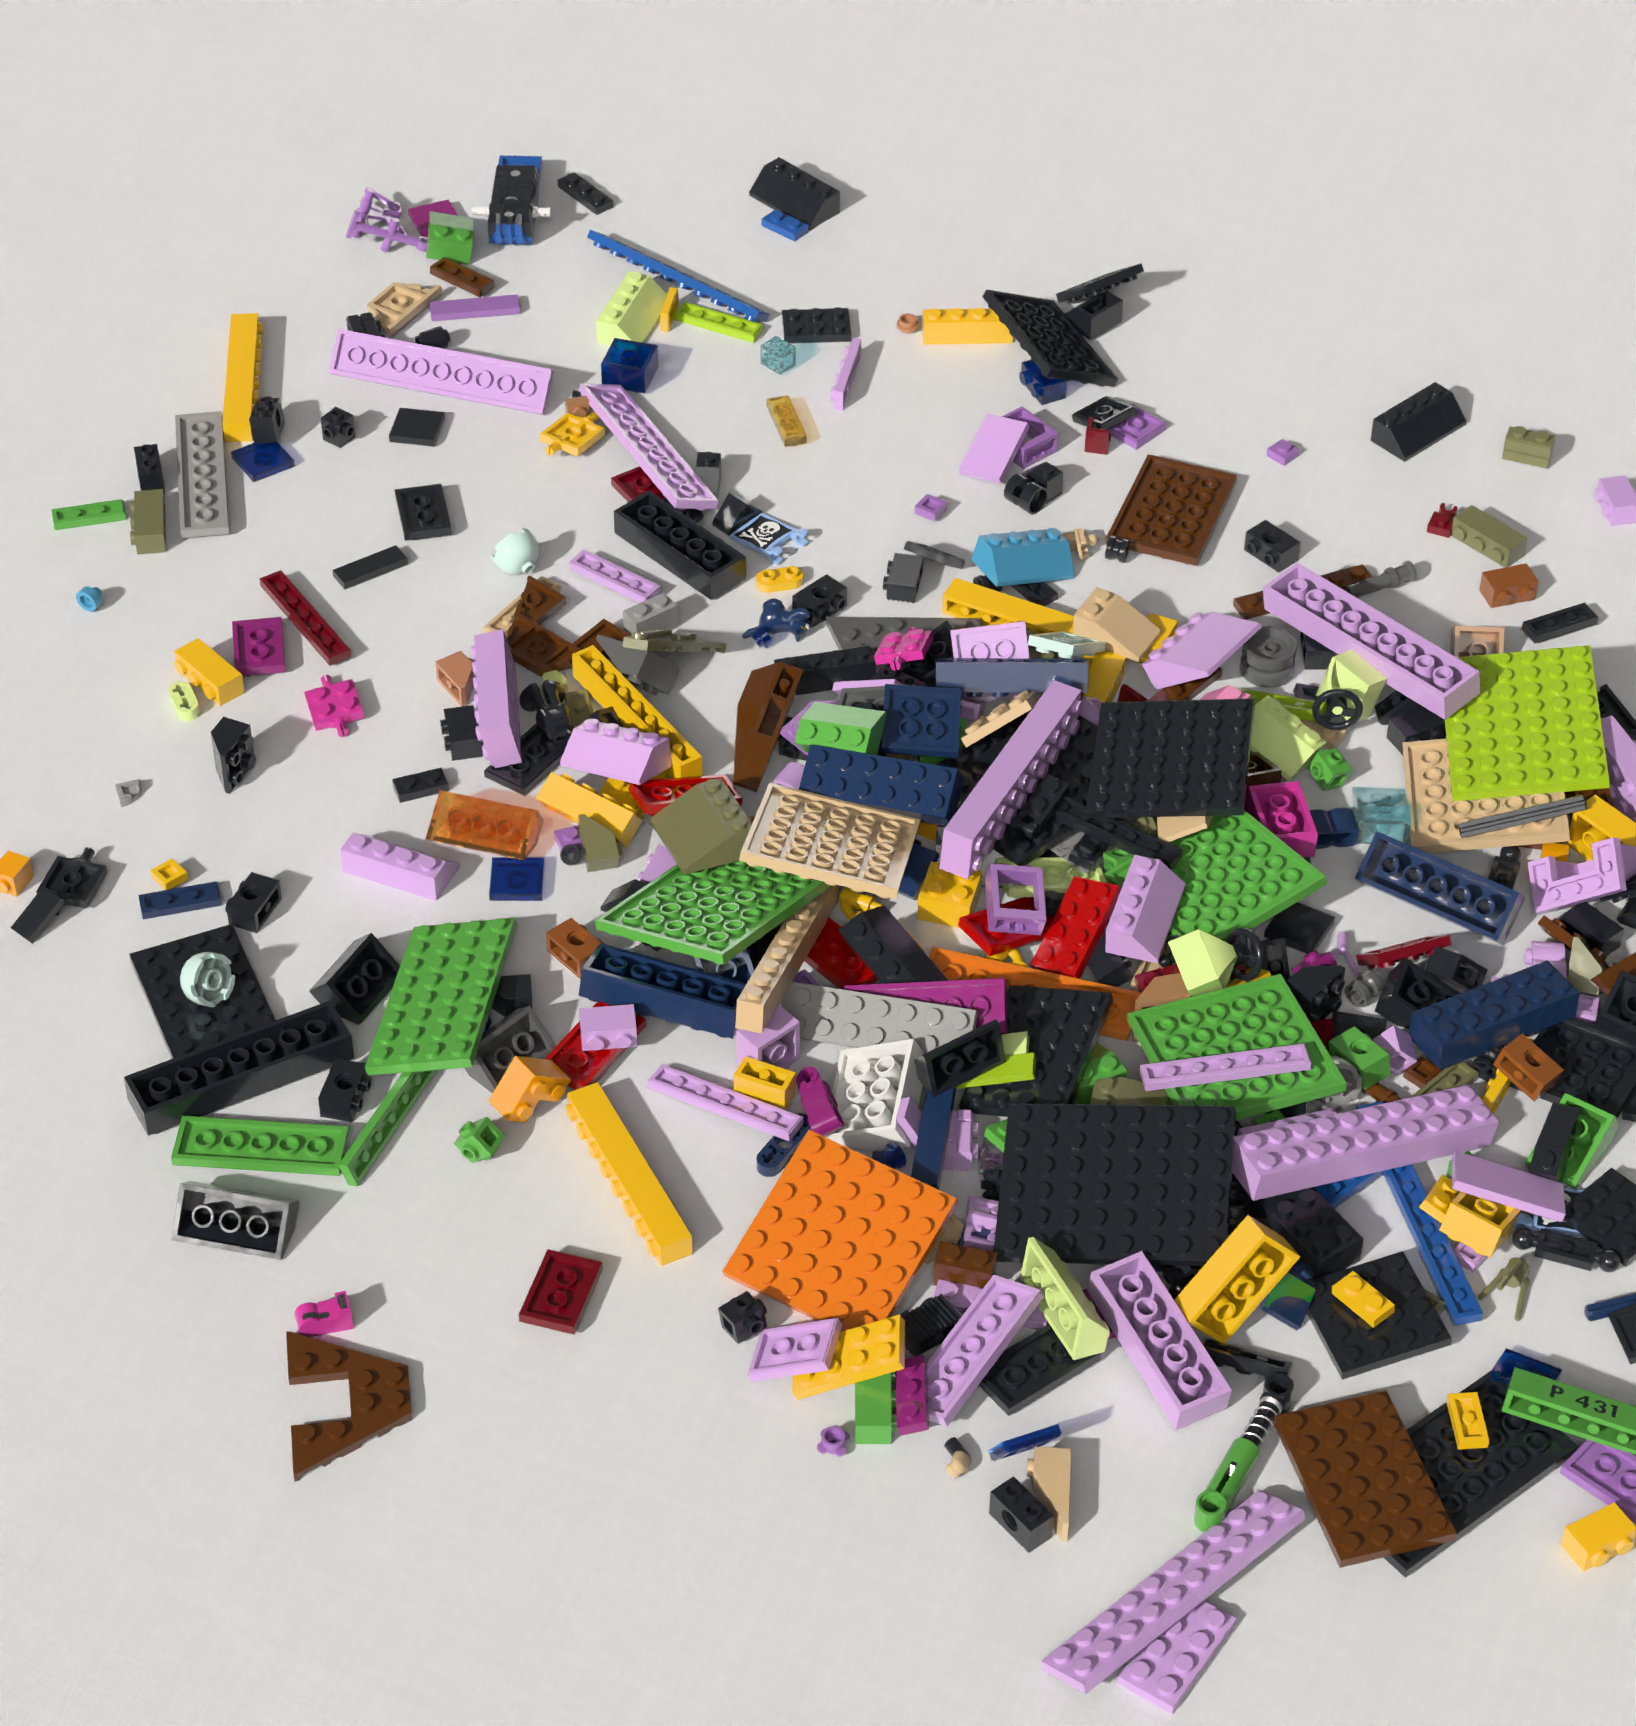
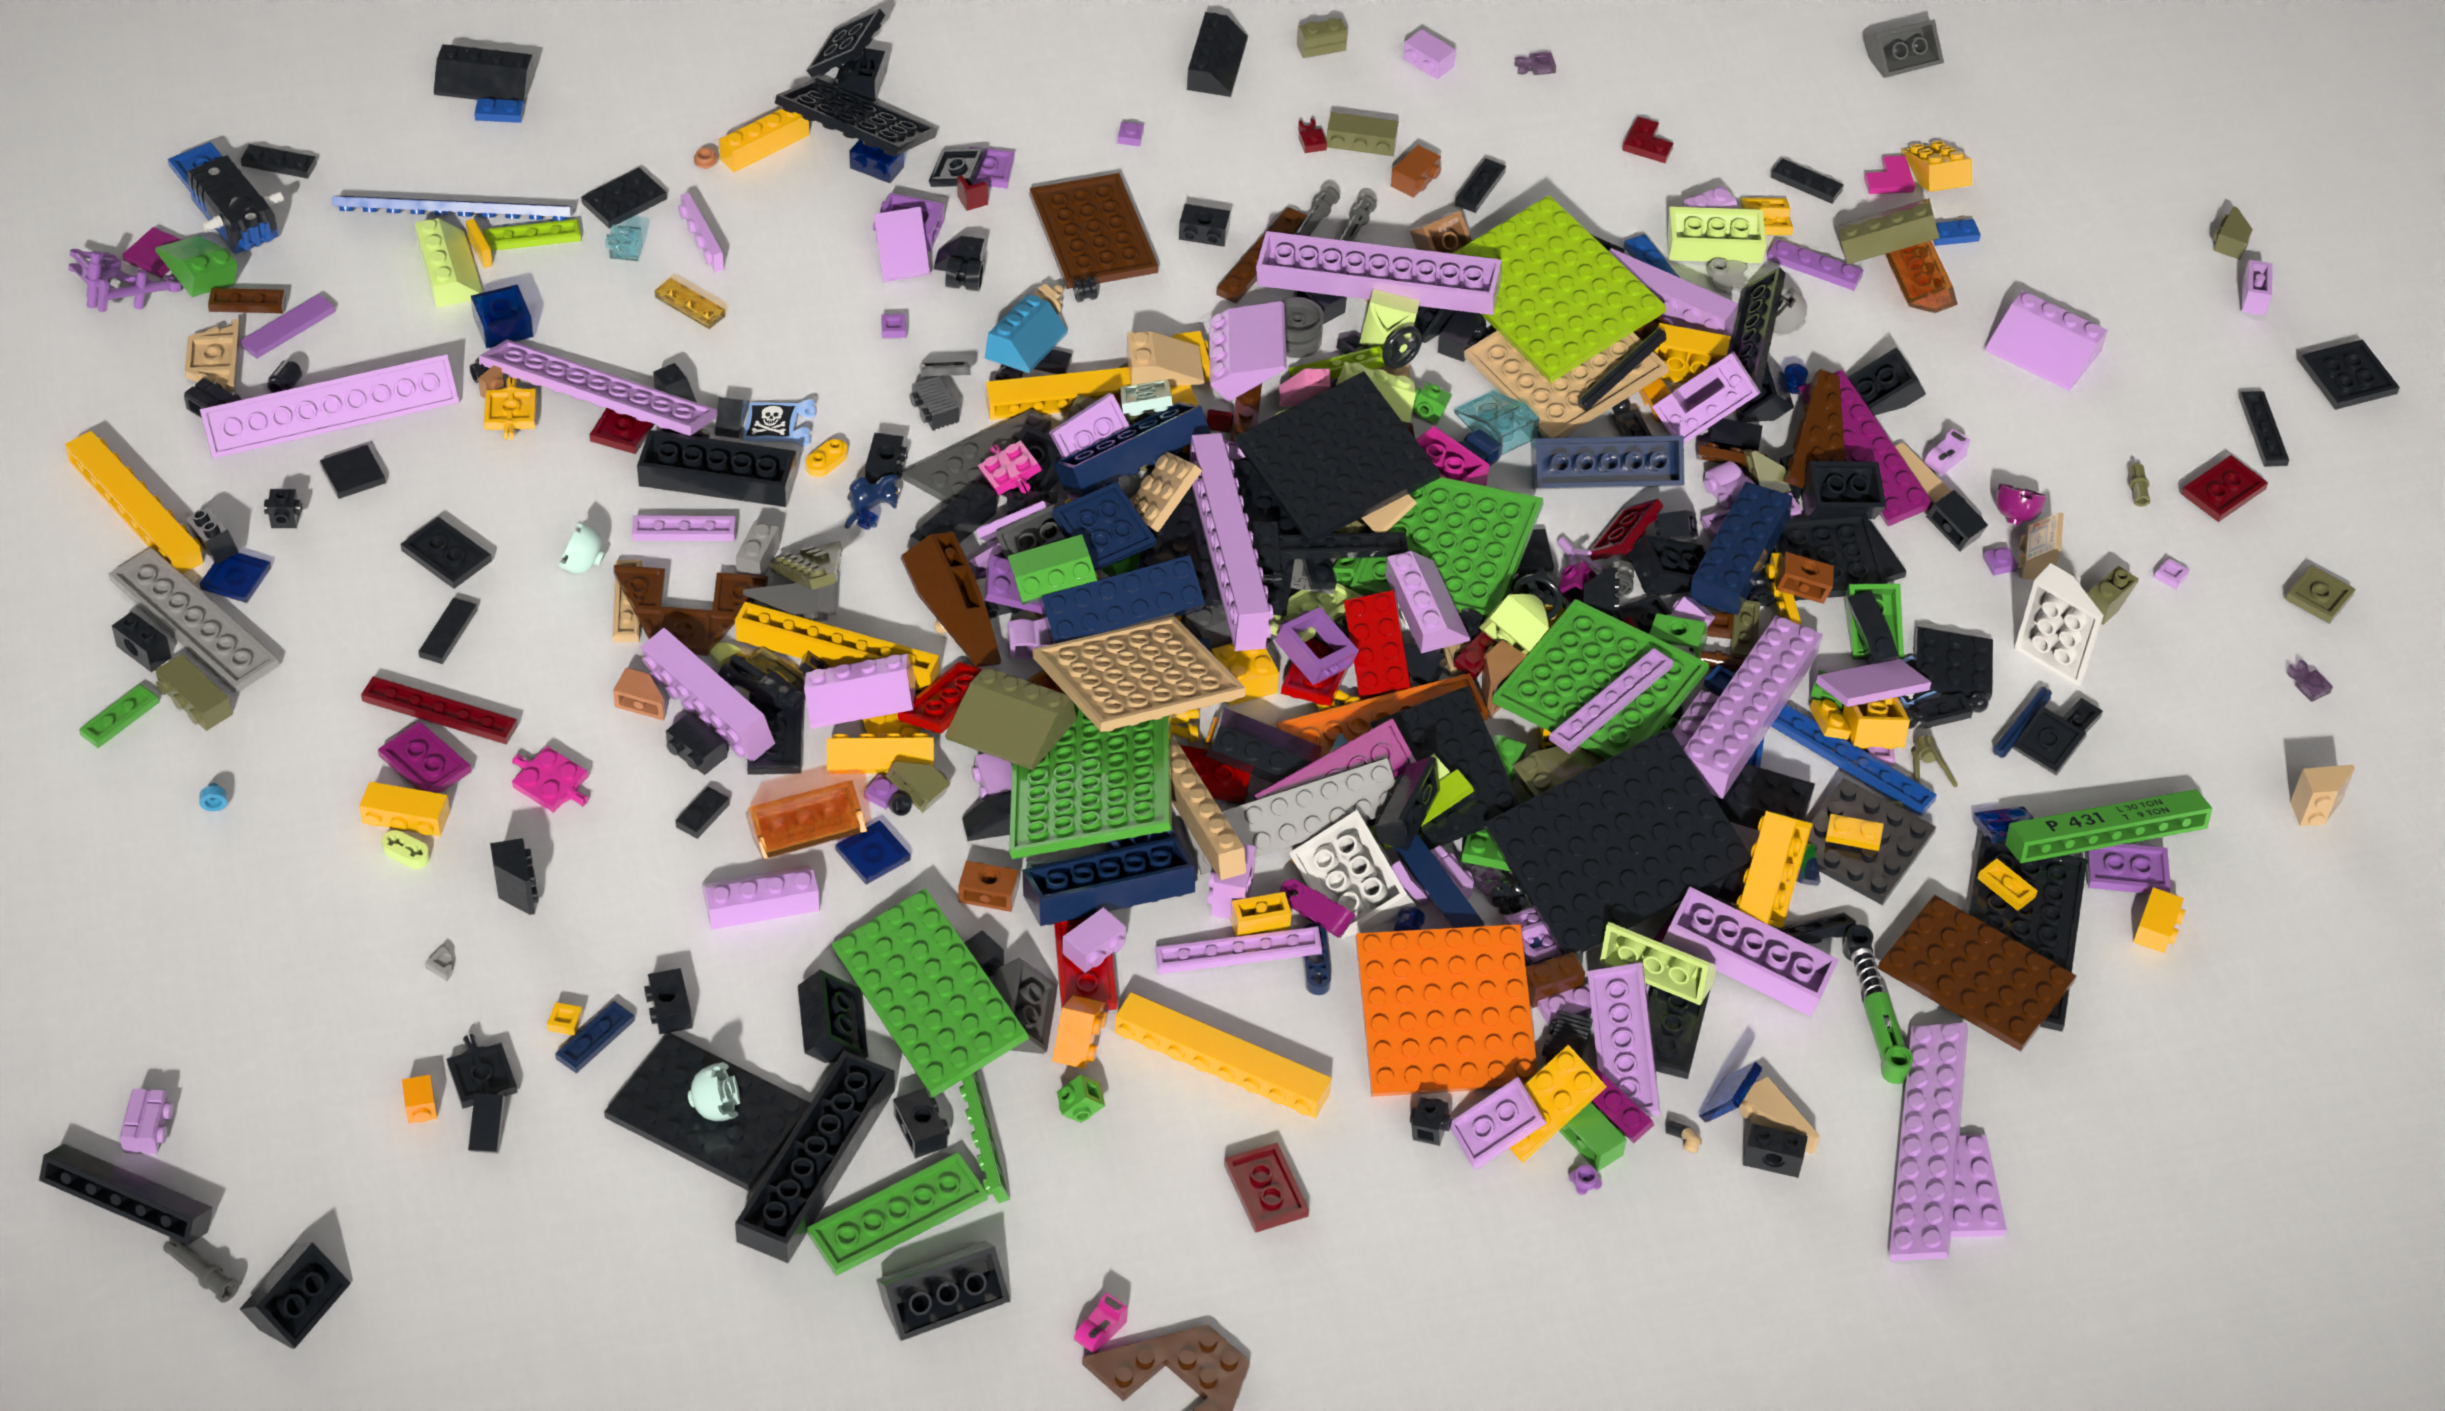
camera: 40 degrees left, 5 degrees up
(1419, 599) = (1358, 217): none -> dark grey pin

